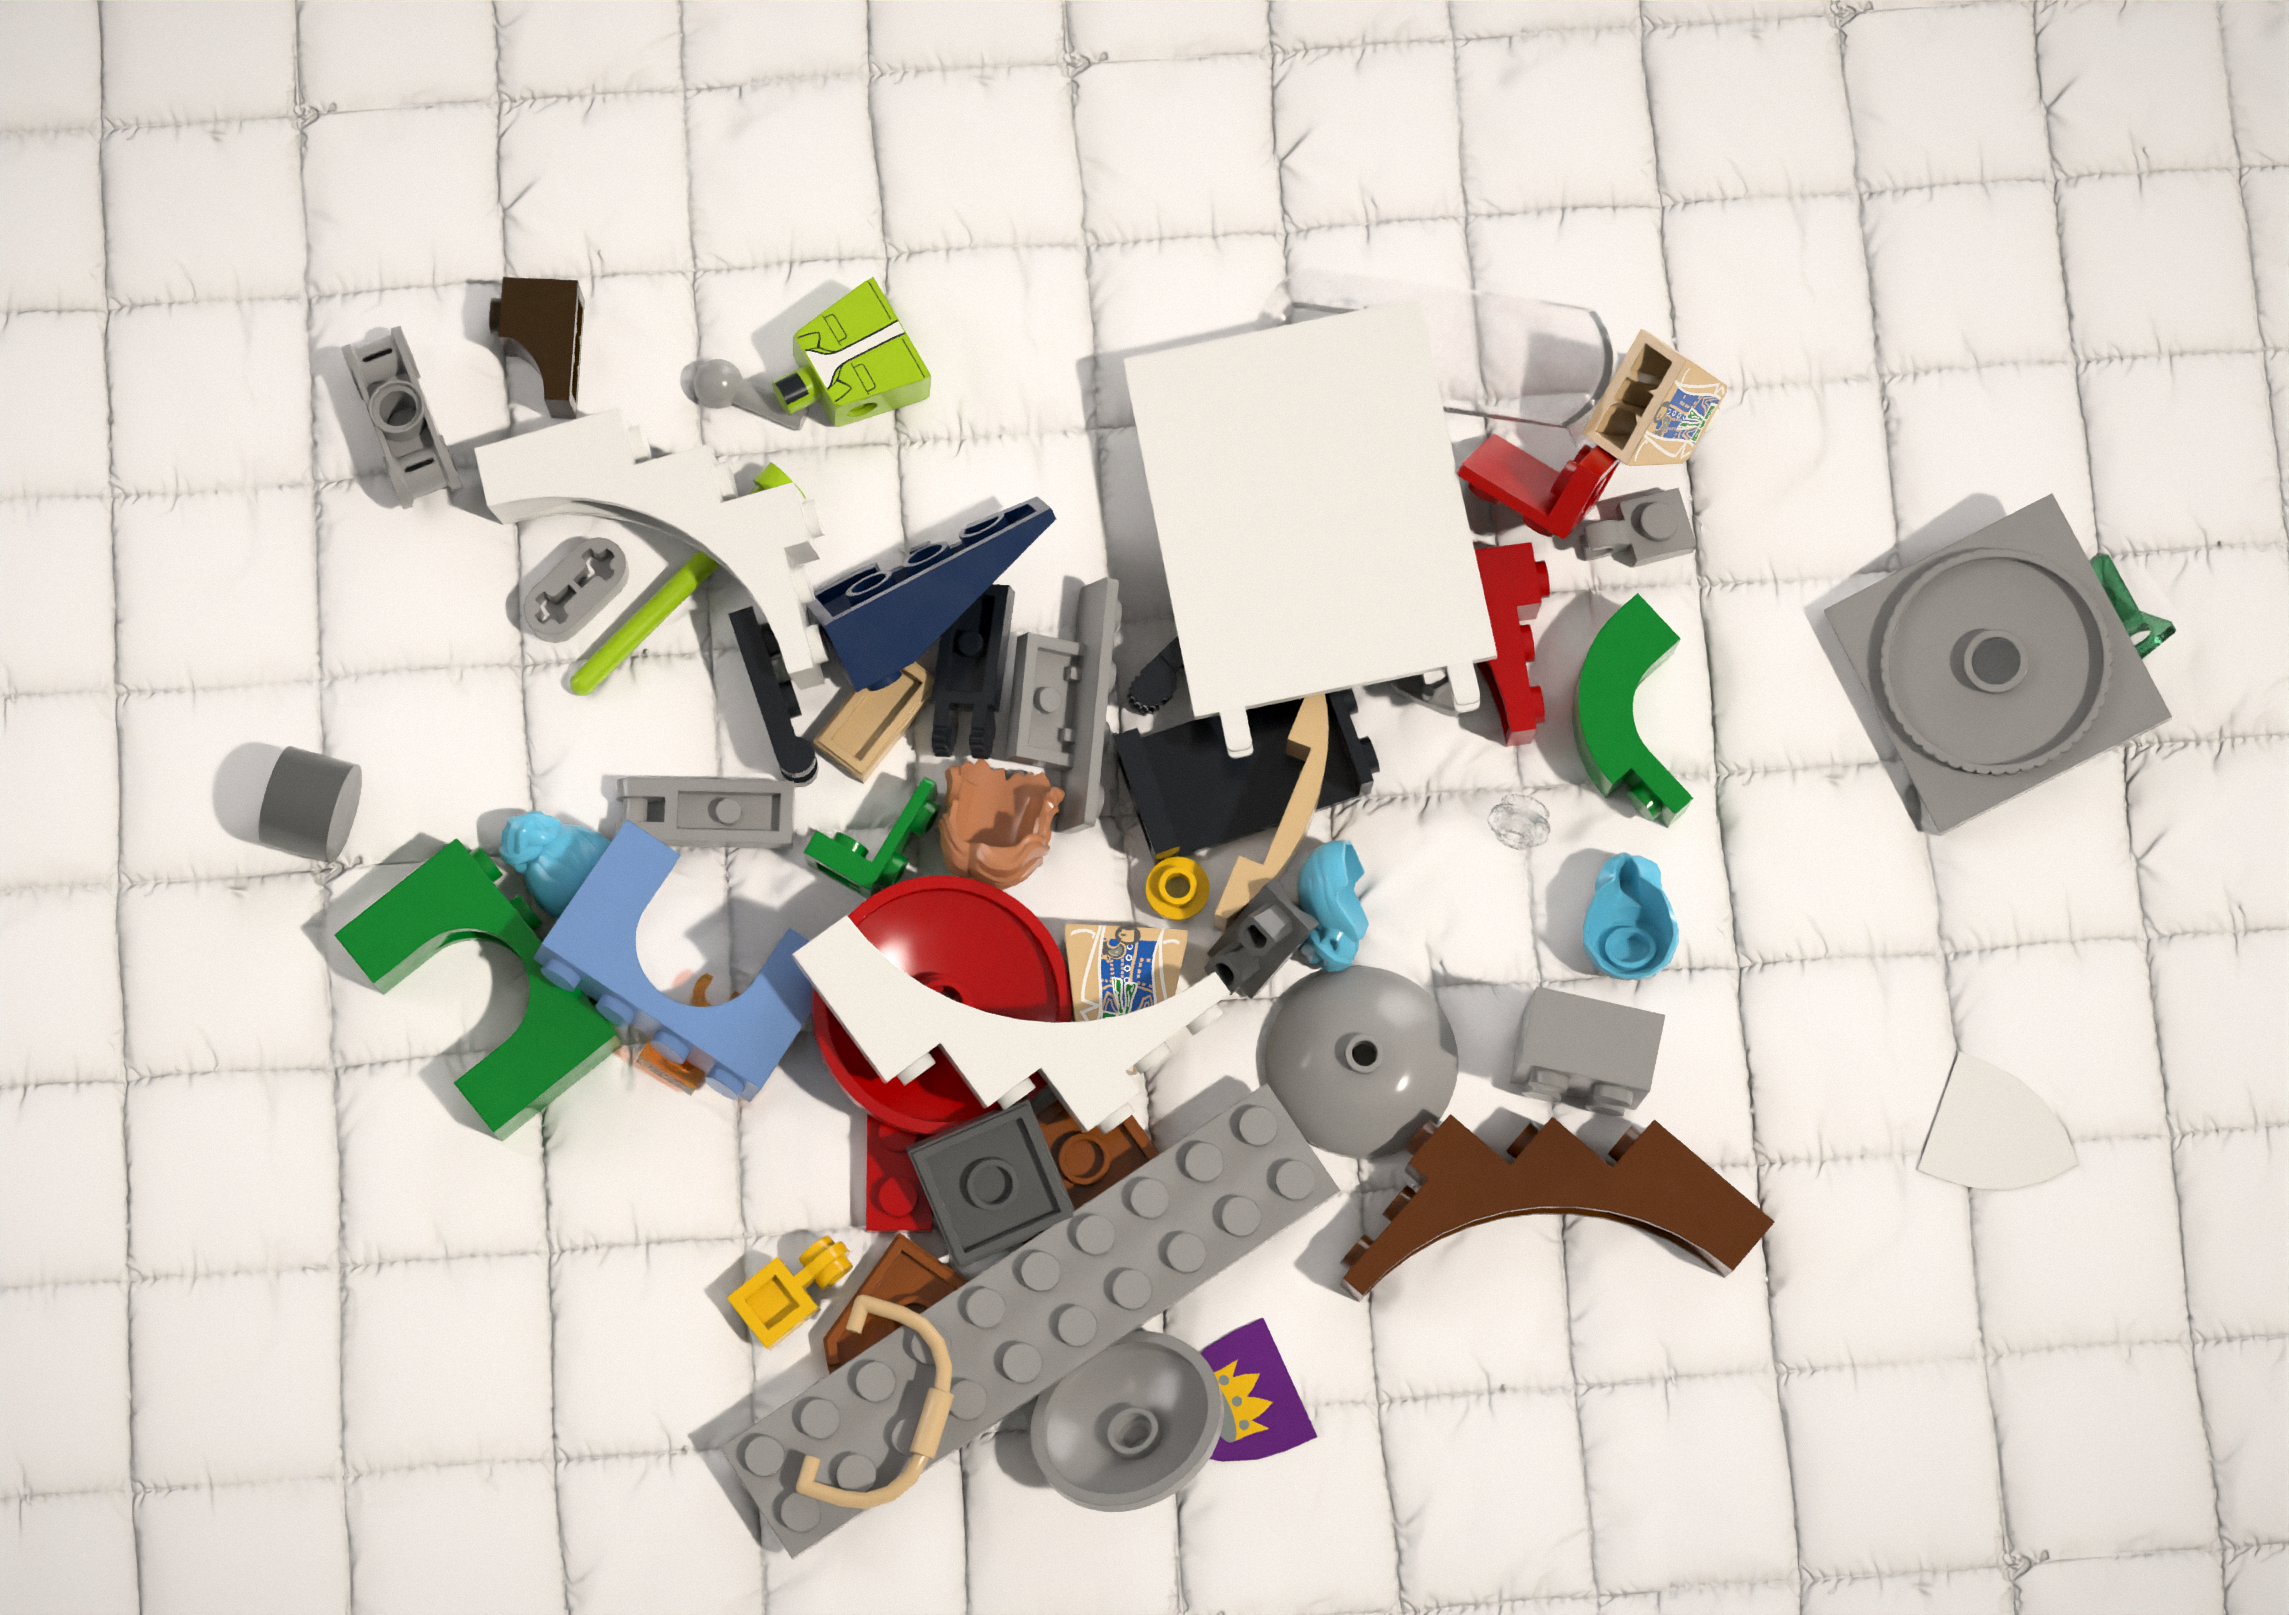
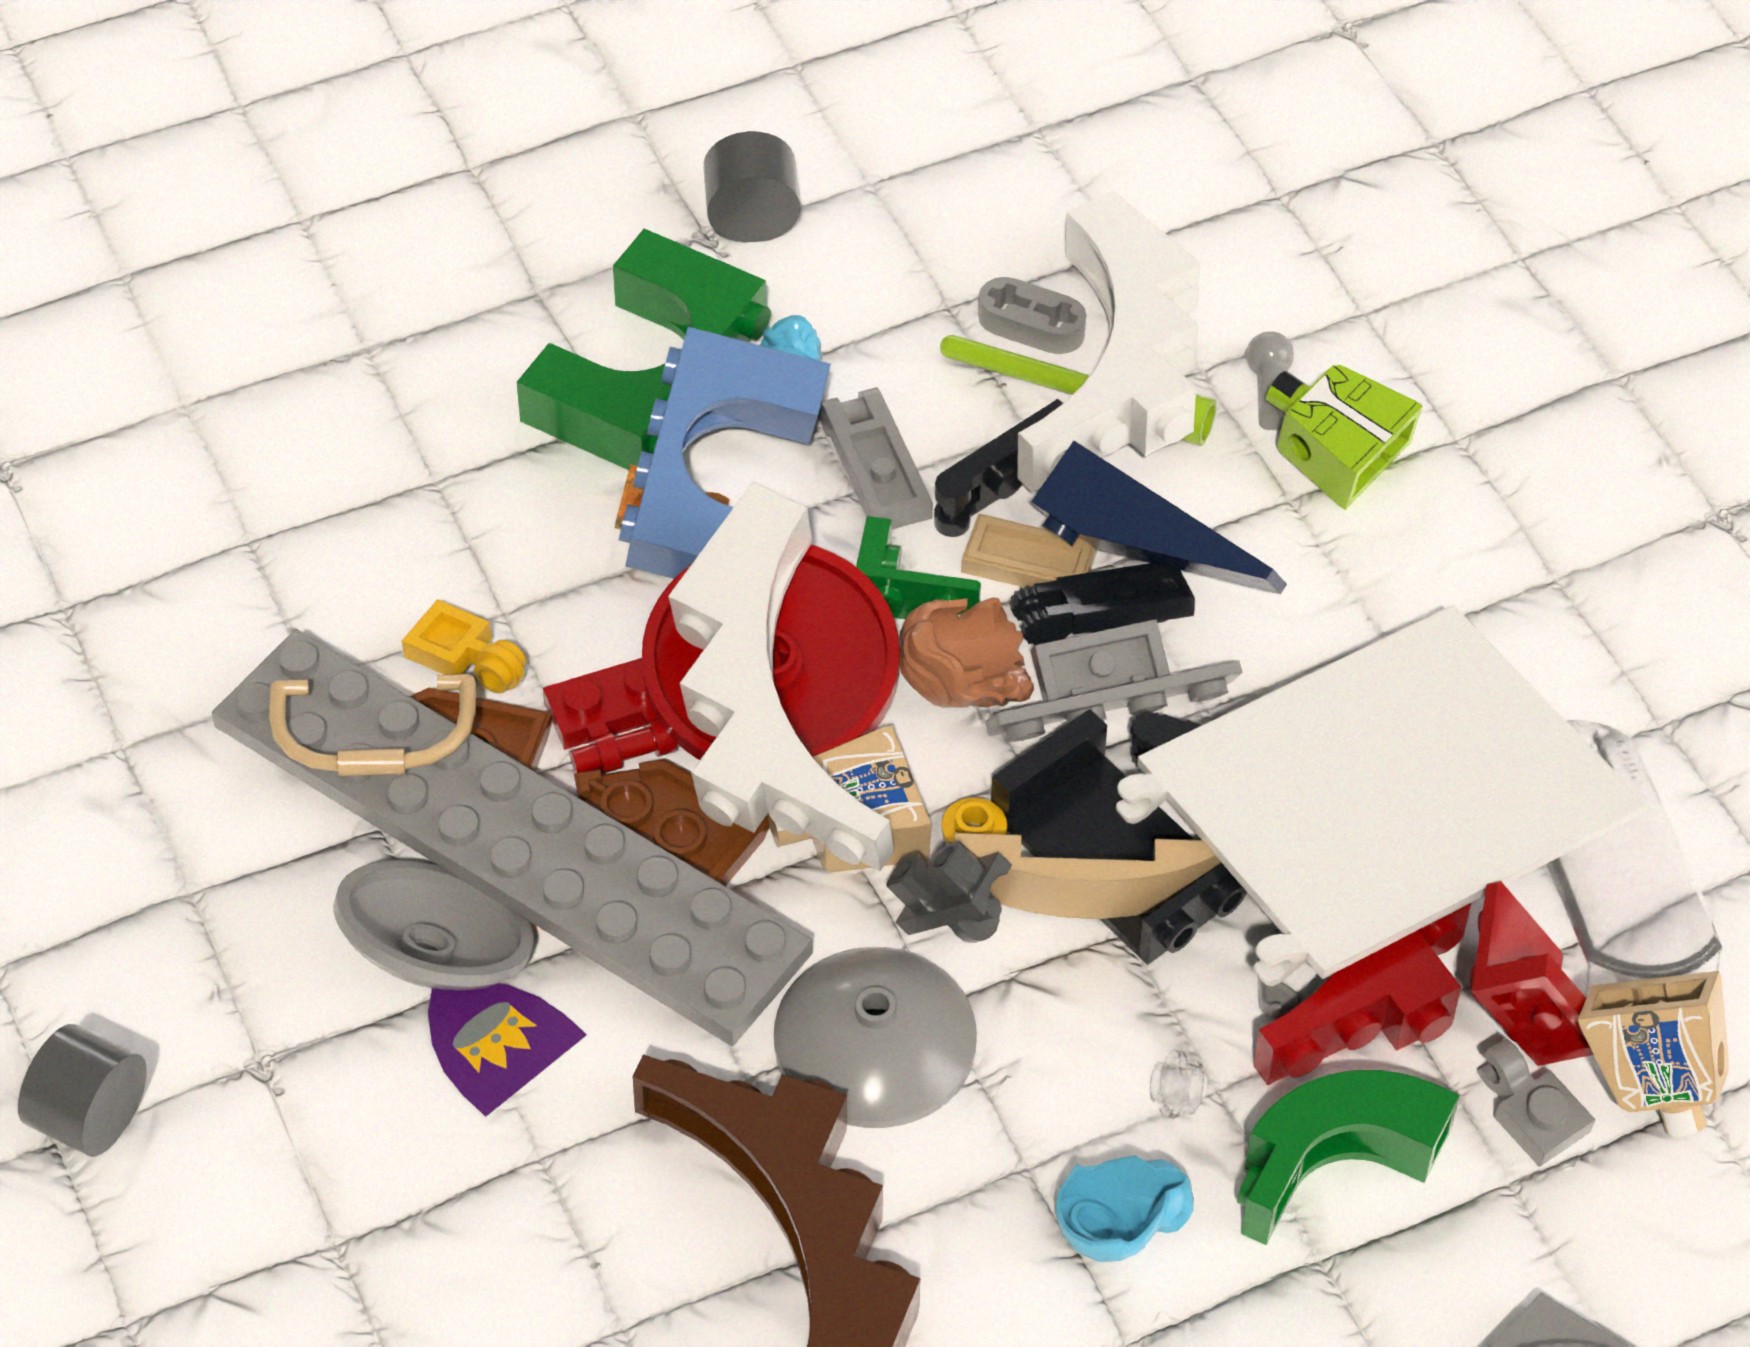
camera: 70 degrees right, 25 degrees down
(413, 452) = (1119, 150): light grey piece -> none
(545, 328) = (1246, 223): dark brown arch -> none
(991, 1182) = (621, 747): dark grey plate -> none
(1328, 895) = (1022, 946): medium azure hair -> none
(1586, 1051) = (962, 1194): light grey brick -> none

